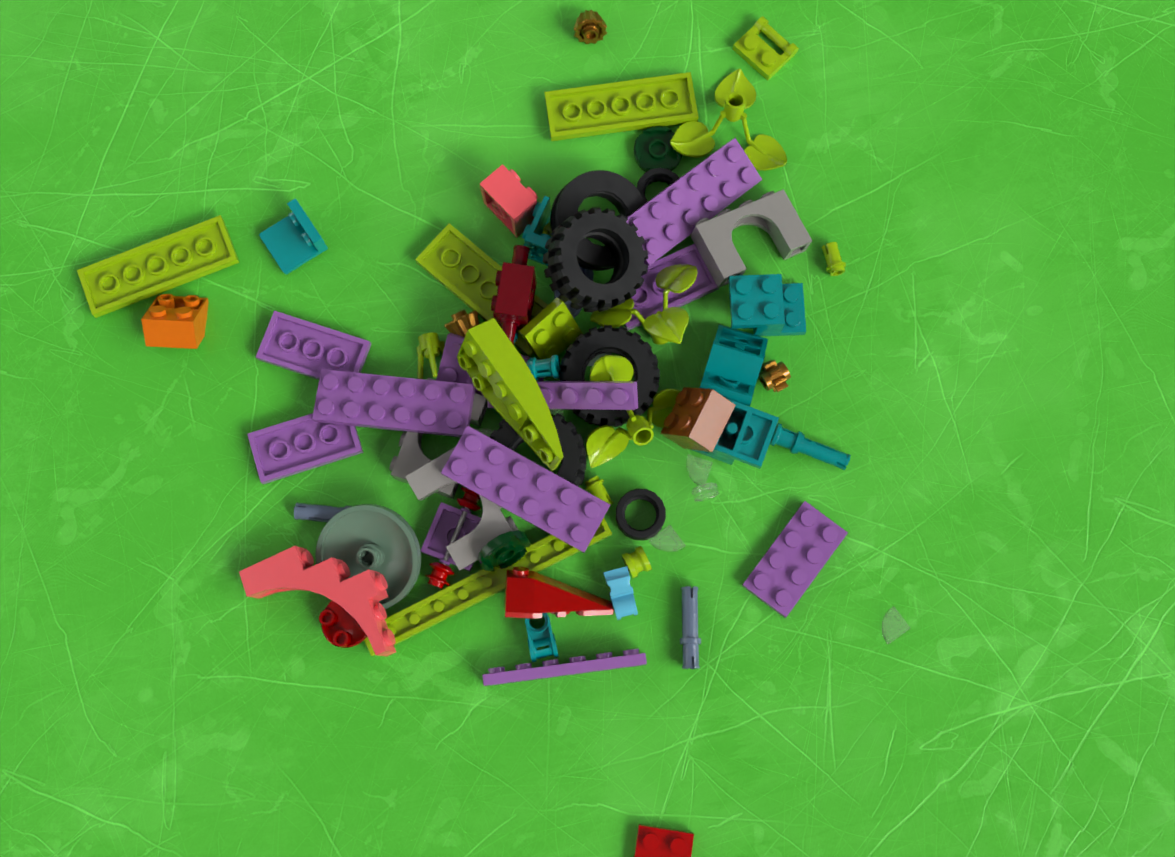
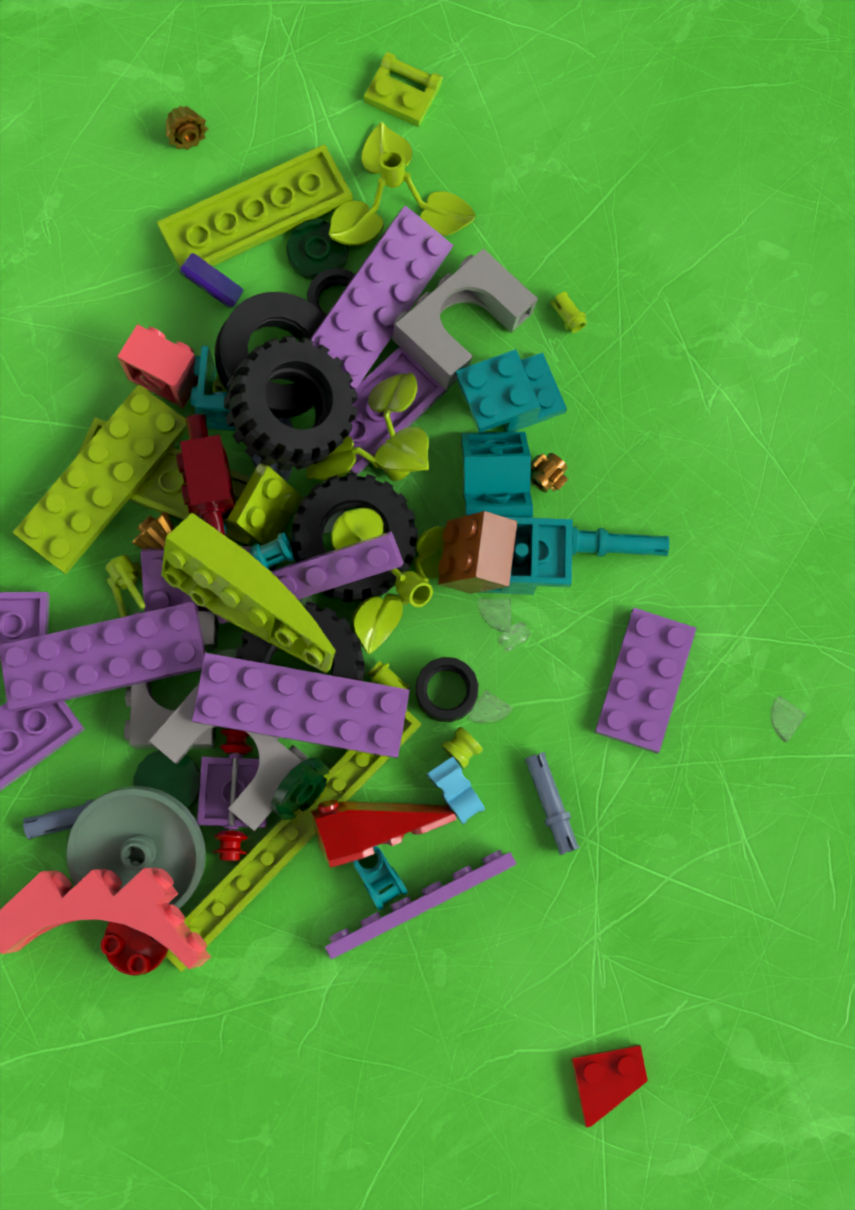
camera: 25 degrees left, 0 degrees up
(416, 512) = (175, 779): none -> dark green tile
(438, 271) = (101, 479): none -> lime plate
(570, 148) = (211, 280): none -> dark purple slope

